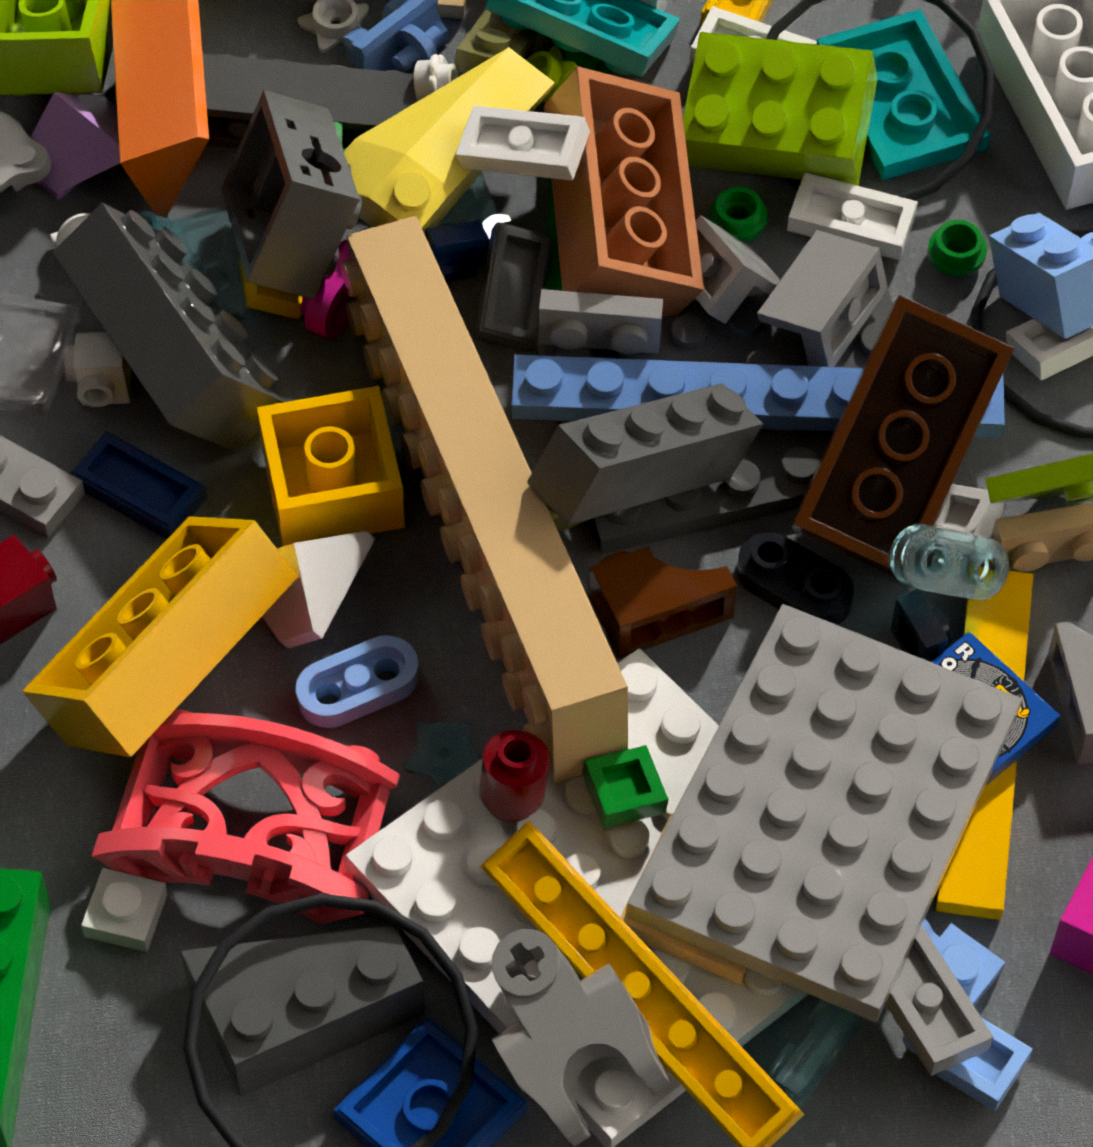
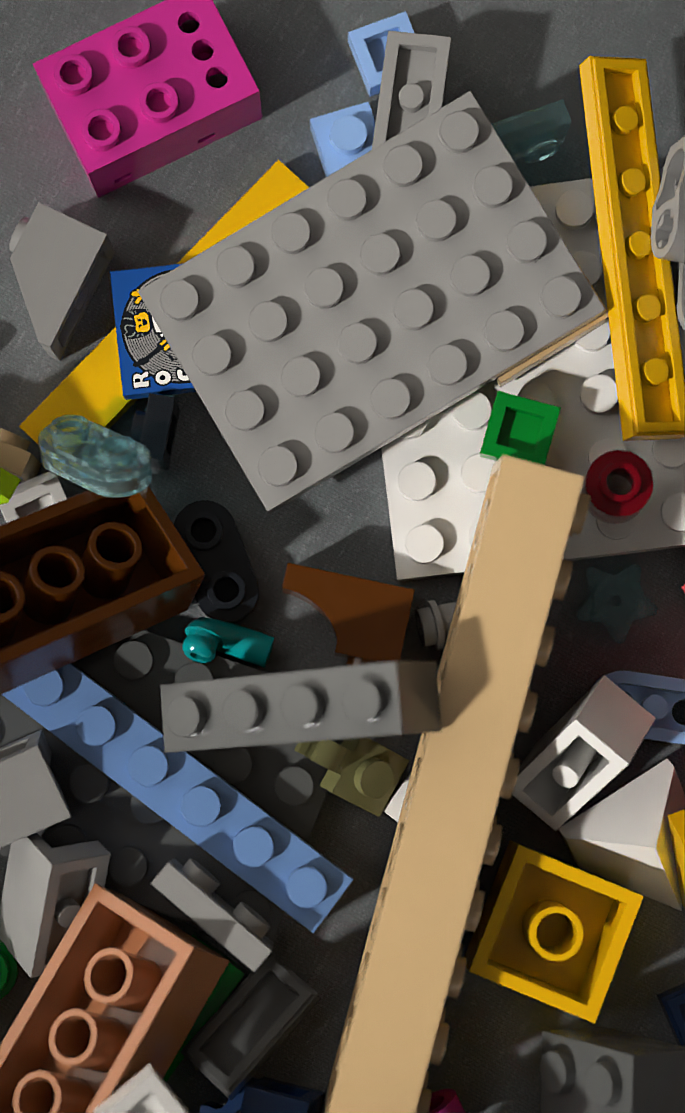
camera: 150 degrees left, 25 degrees up
(398, 589) = (581, 753): none -> white brick
(731, 533) = (210, 636): none -> teal arm

